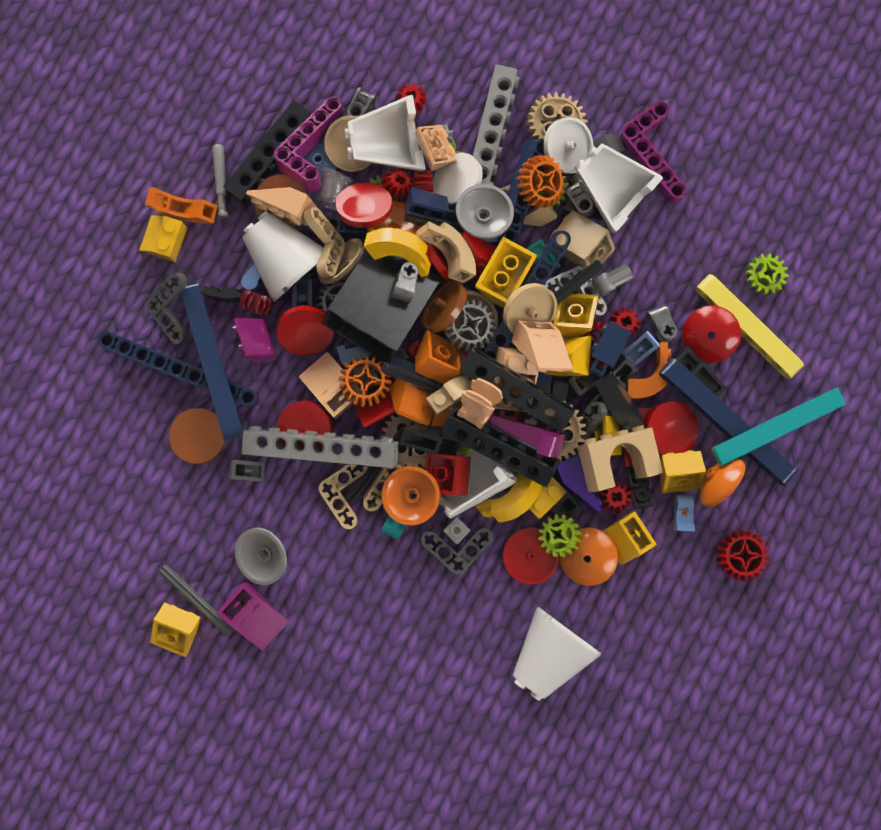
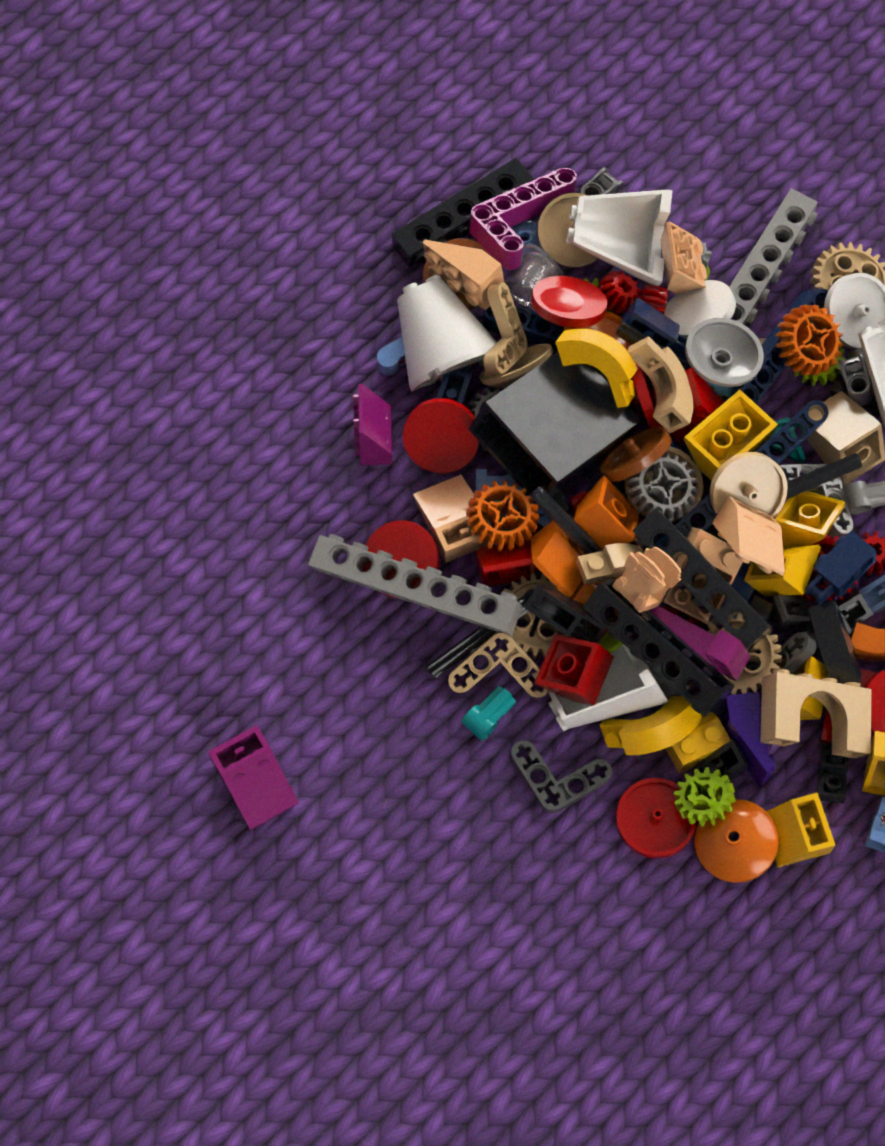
camera: 15 degrees right, 15 degrees down
(163, 237) = (293, 274): yellow slope -> none
(163, 307) = (265, 357): dark grey beam -> none
(169, 367) = (264, 449): dark blue beam -> none
(174, 629) = (141, 764): yellow slope -> none
(179, 208) = (339, 252): orange arch -> none
(194, 598) = (183, 738): dark grey axle -> none
(196, 436) = (256, 527): dark orange piece -> none
(211, 362) = (307, 436): dark blue beam -> none
(219, 170) = (390, 223): light grey piece -> none
(227, 295) = (352, 367): black slope -> none
(247, 471) = (305, 590): dark grey slope -> none
(254, 560) = (278, 698): light grey dish -> none
(256, 302) = (388, 384): dark red gear -> none
(337, 487) = (421, 649): tan beam -> none
(398, 499) = (515, 662): orange dish -> none
(405, 284) = (595, 403): flat silver piece -> none
(417, 93) = (679, 199): red gear -> none
(456, 530) = (564, 750): light grey brick -> none
(540, 216) = (795, 388): tan tile -> none
(550, 656) = (648, 958): white cone -> none
(616, 504) = (795, 764): red gear -> none

